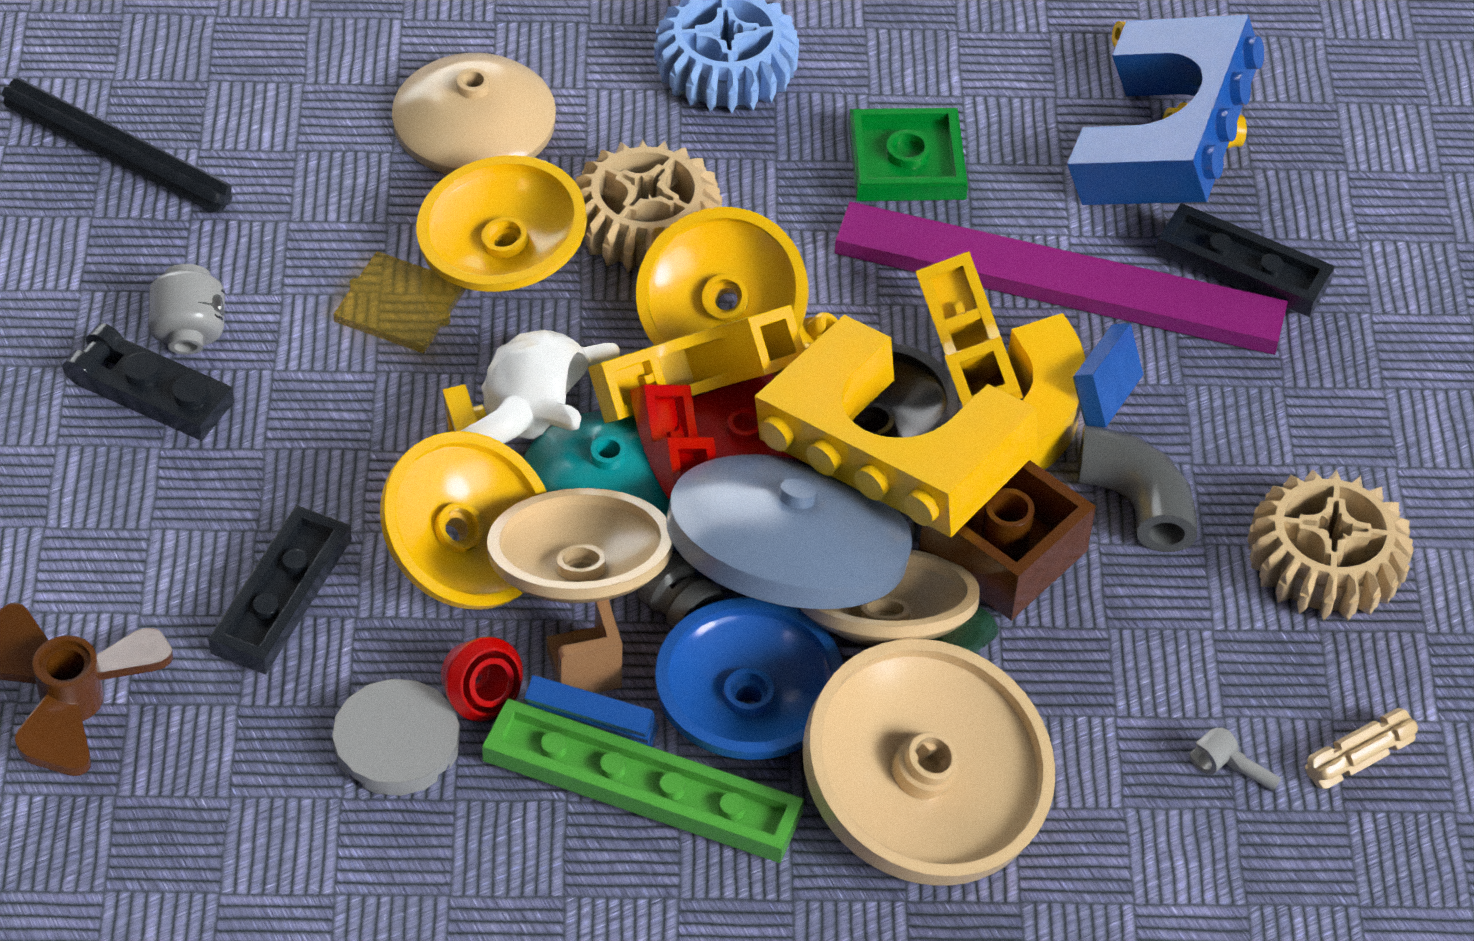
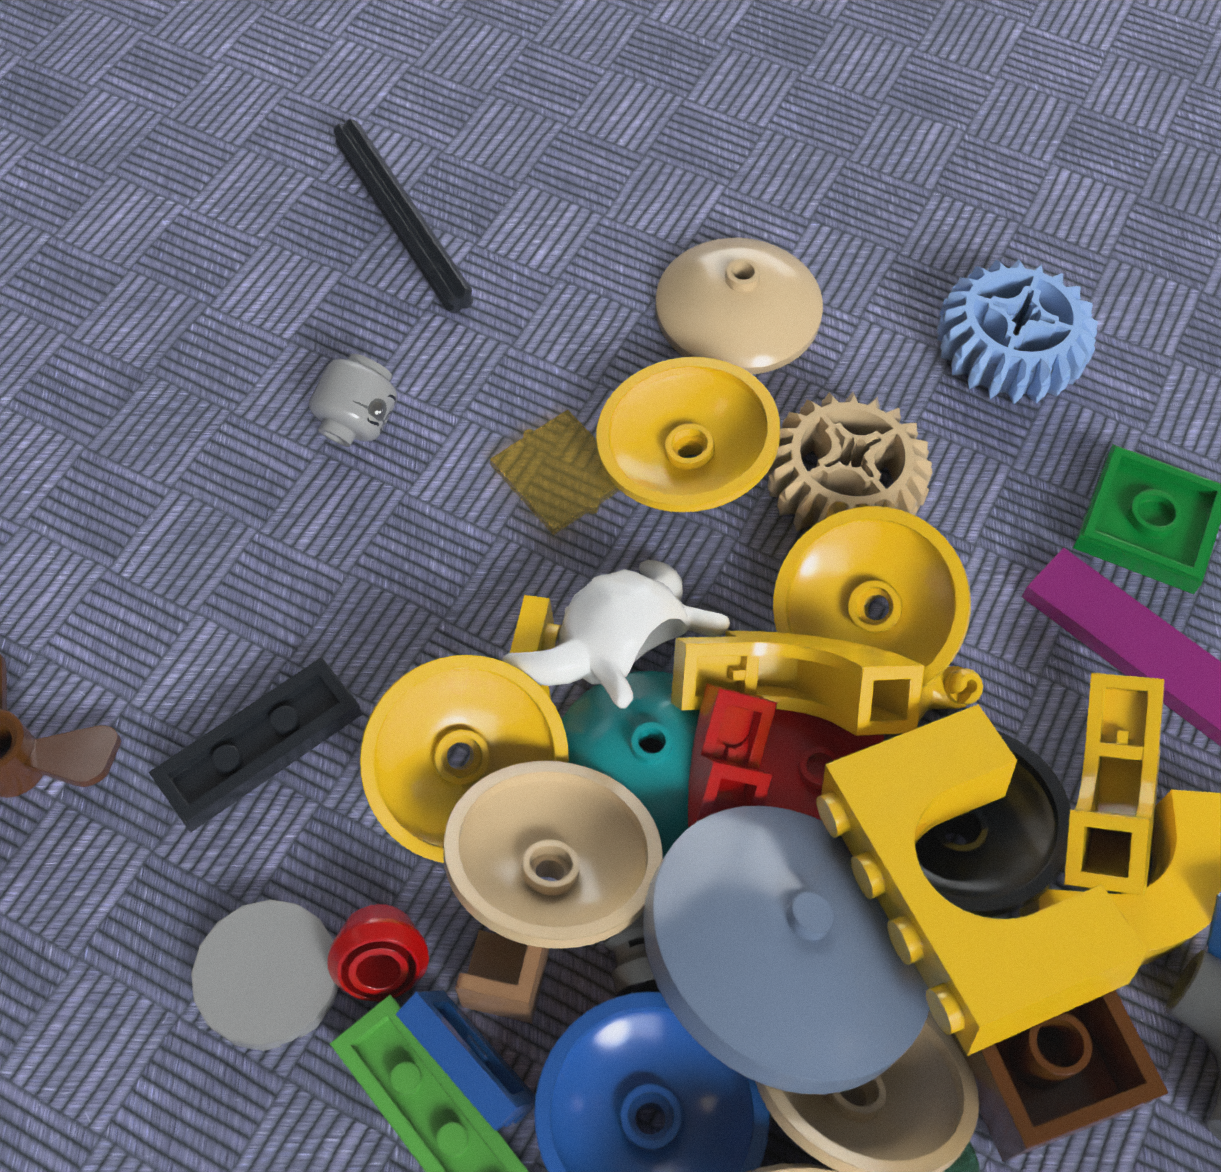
camera: 30 degrees right, 10 degrees up
(149, 383) = (285, 462): black plate -> none

